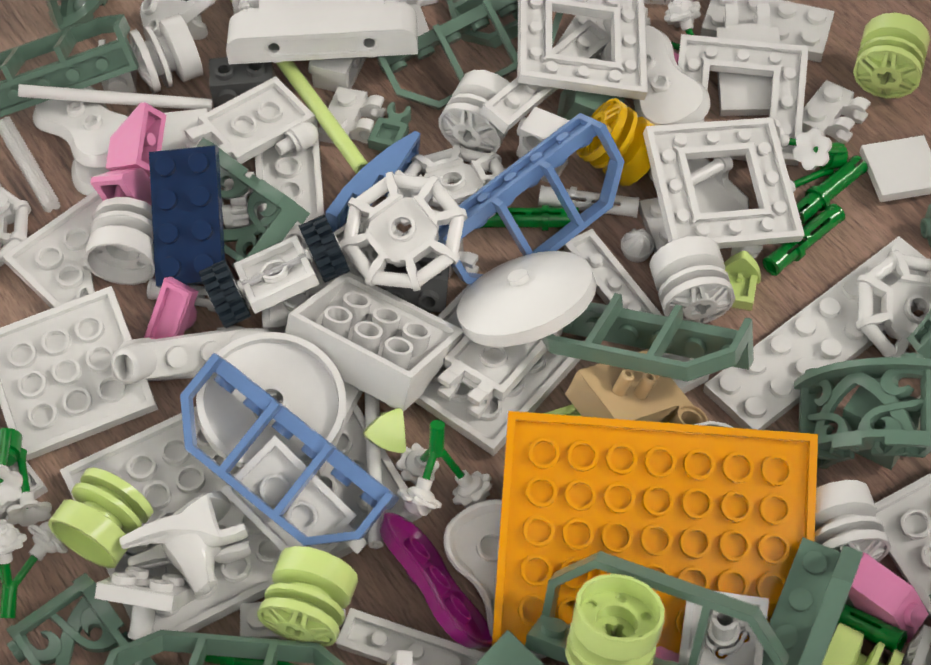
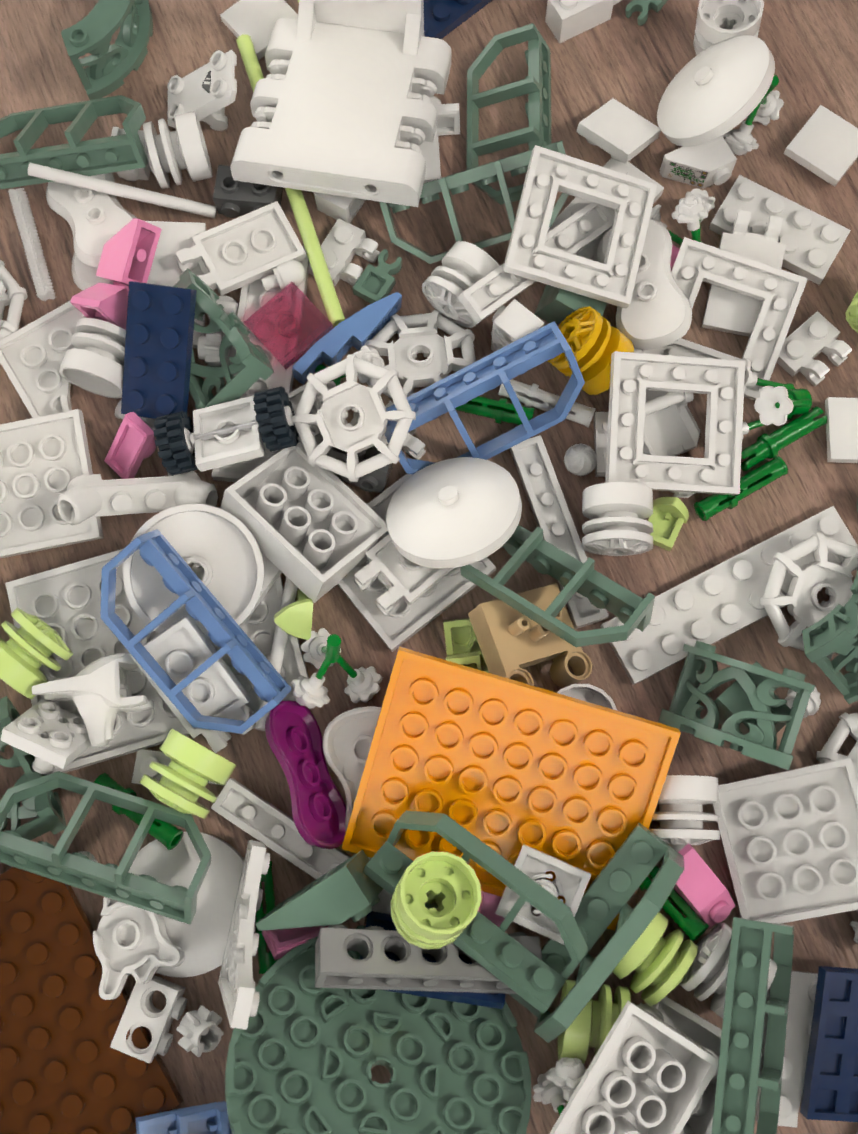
camera: 15 degrees right, 20 degrees up
(313, 177) = (288, 325): none -> clear pink plate

